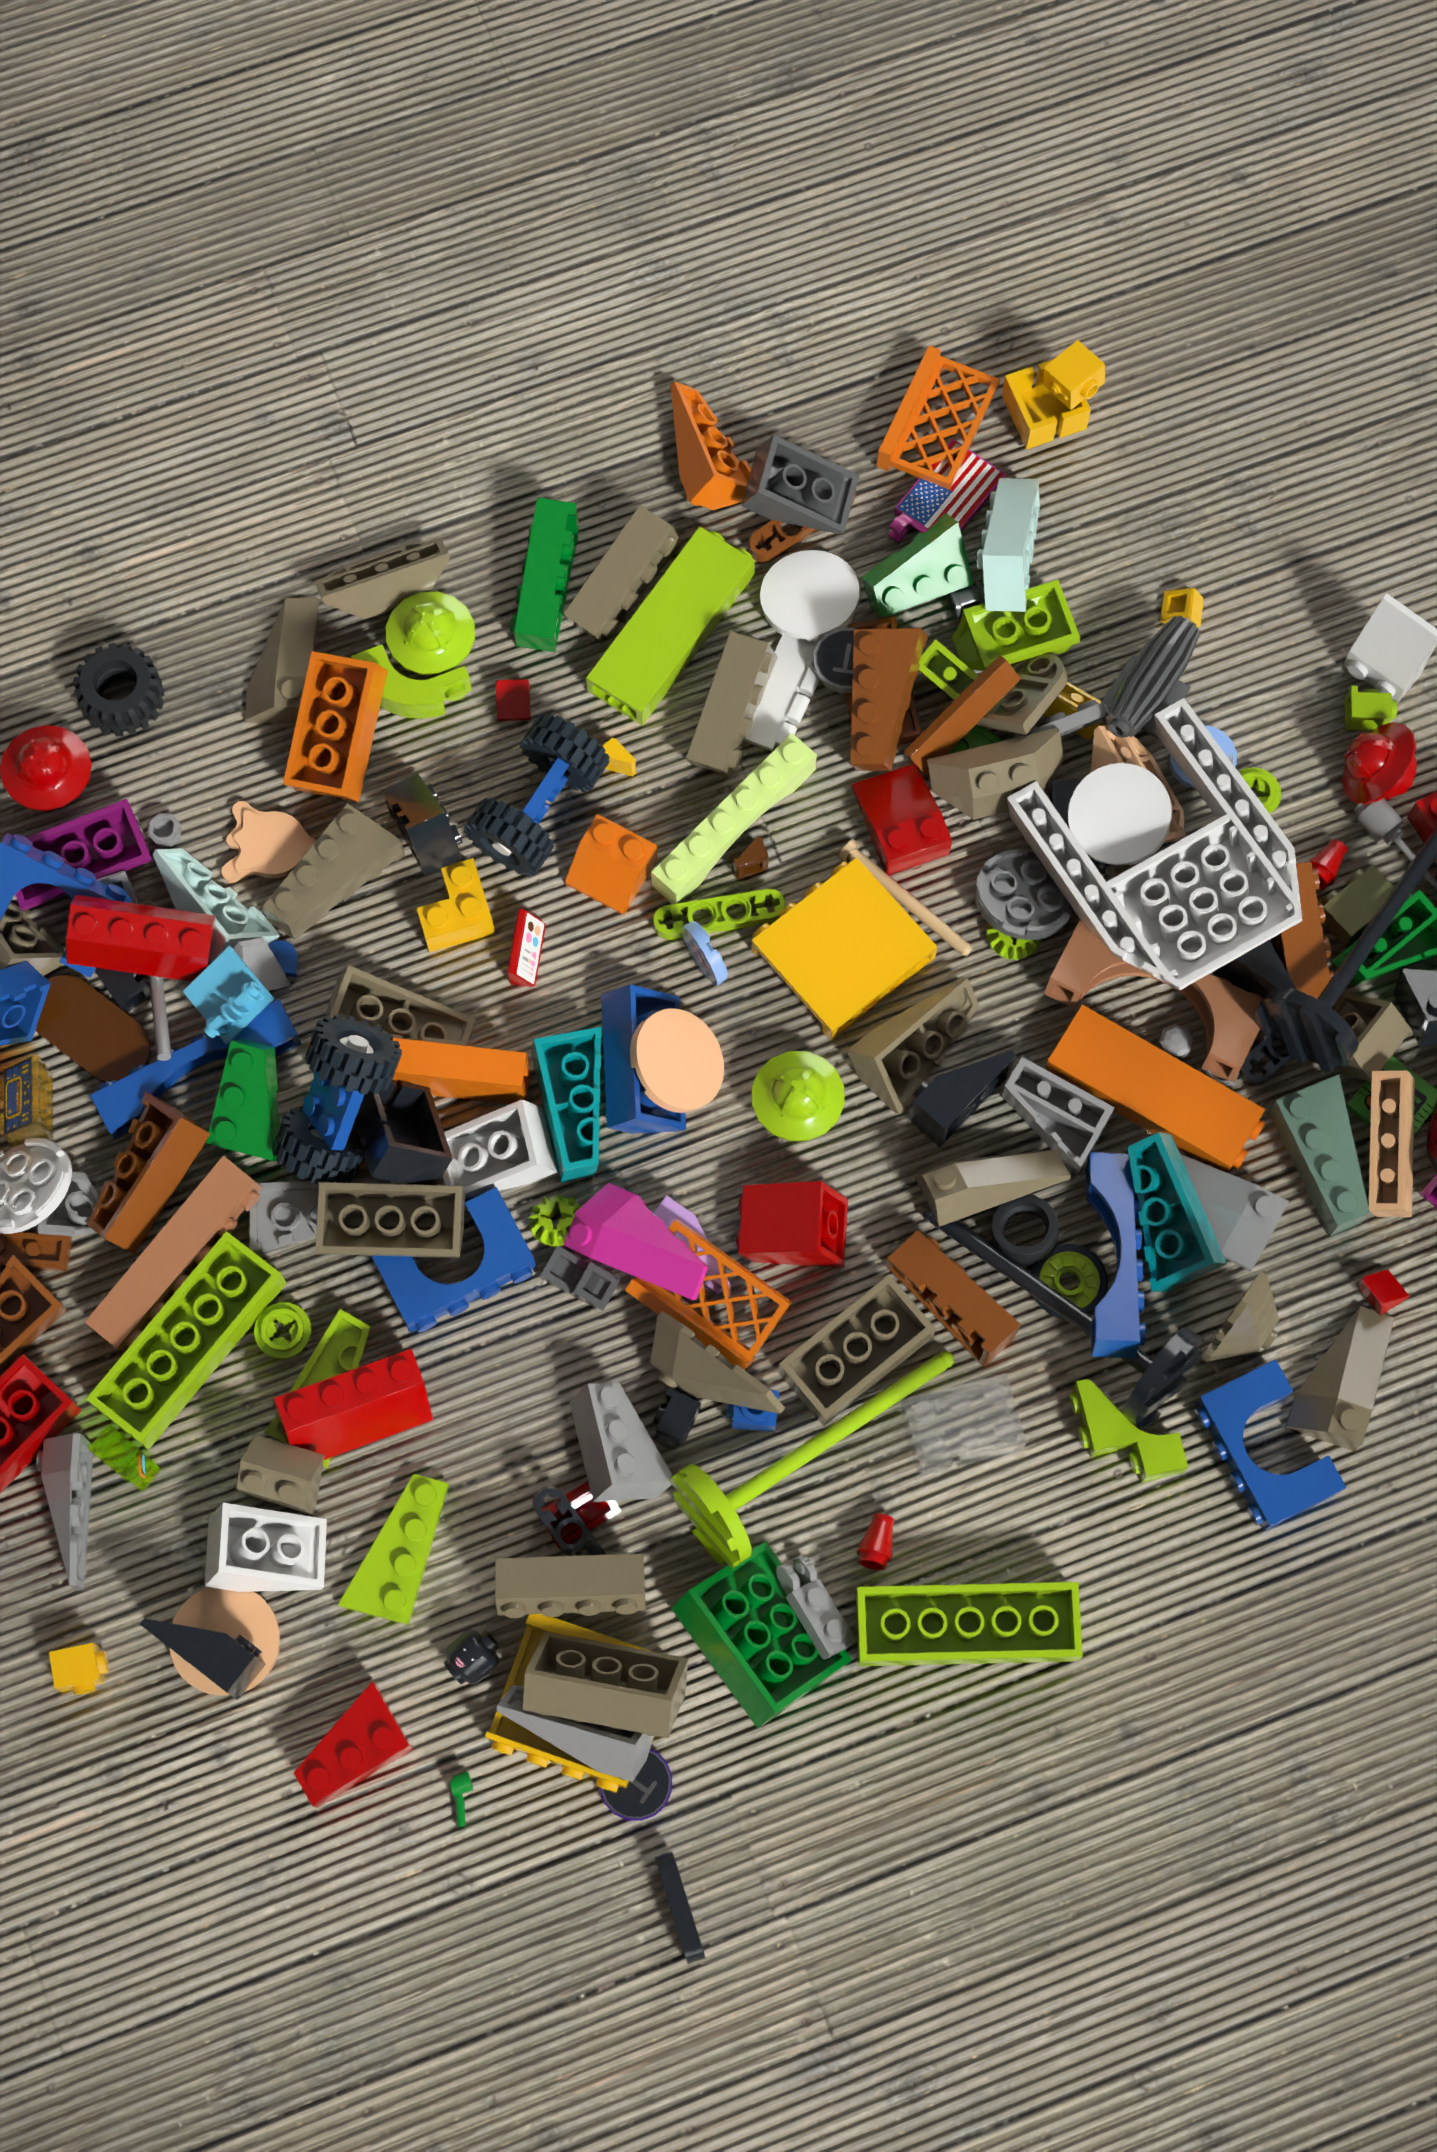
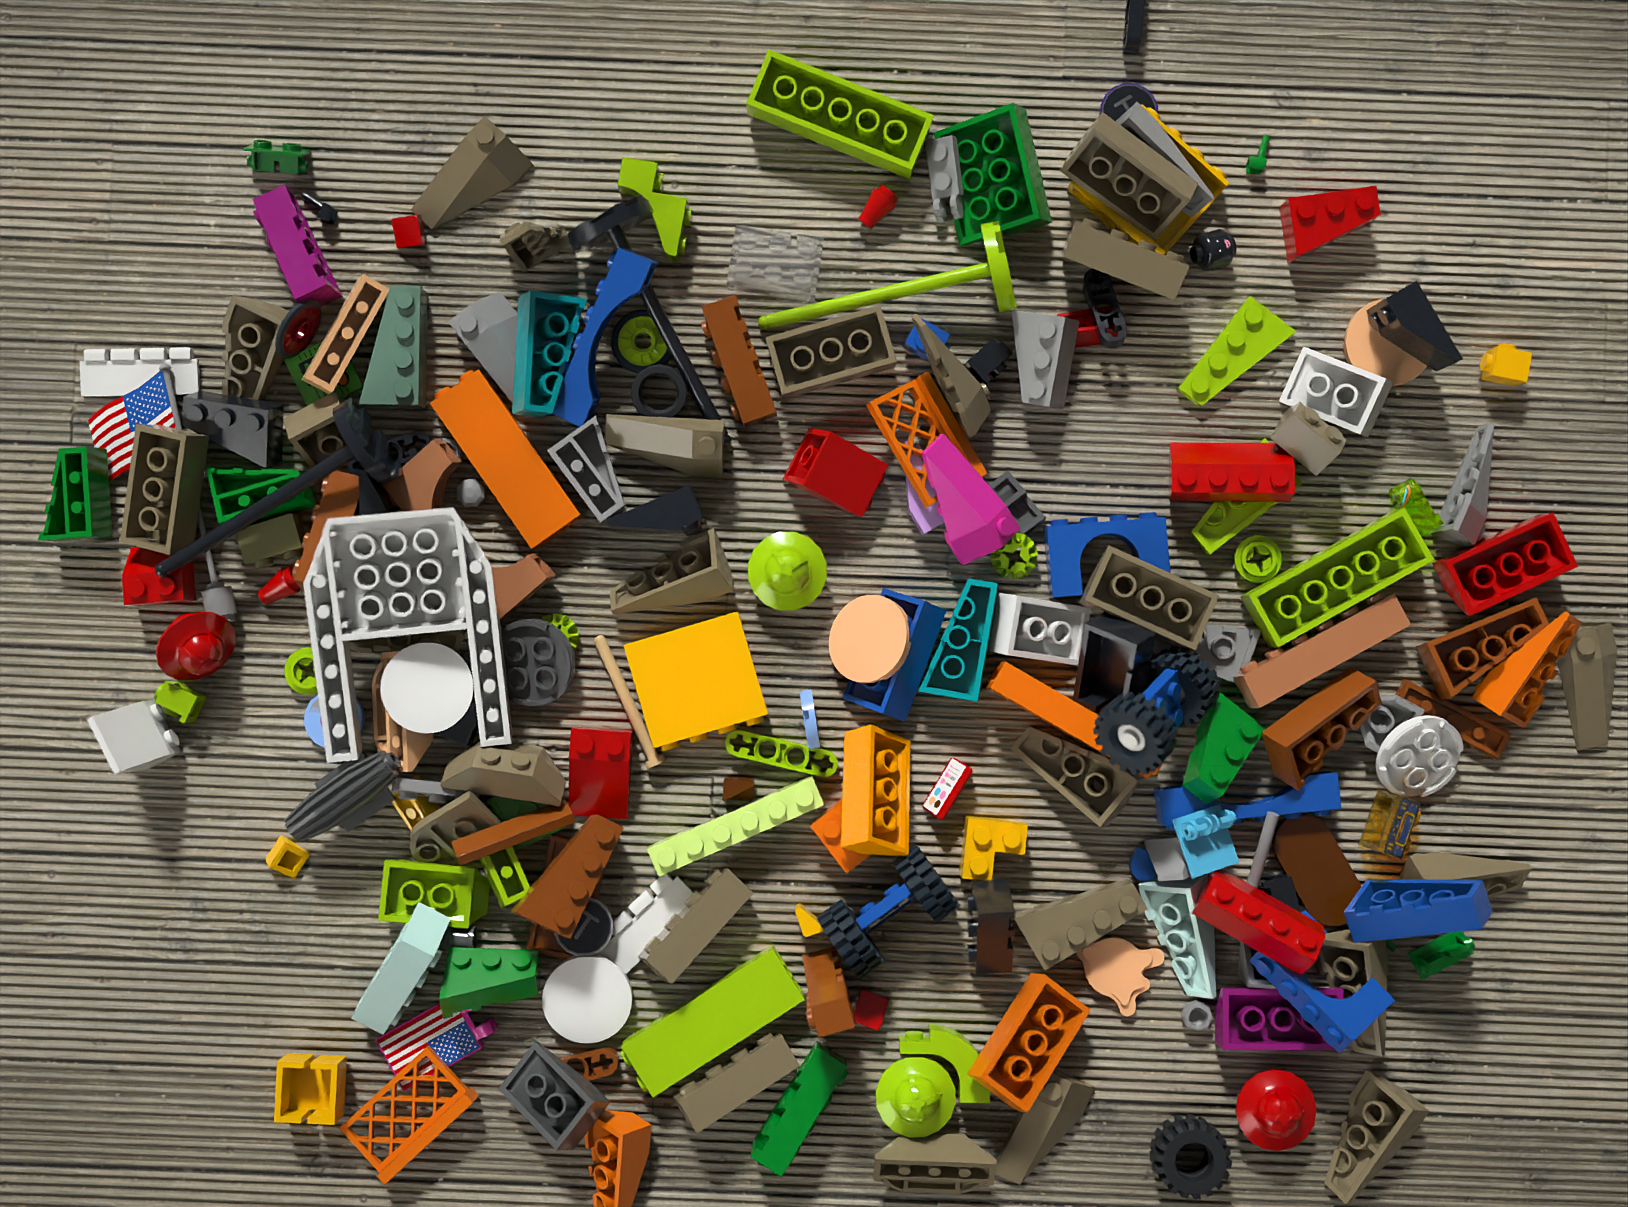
camera: 160 degrees left, 15 degrees up
(563, 680) = (828, 995): none -> dark orange wedge
(601, 906) = (876, 792): none -> light orange slope
(1074, 375) = (275, 1095): yellow head -> none
(1269, 1495) = (571, 188): blue arch -> none

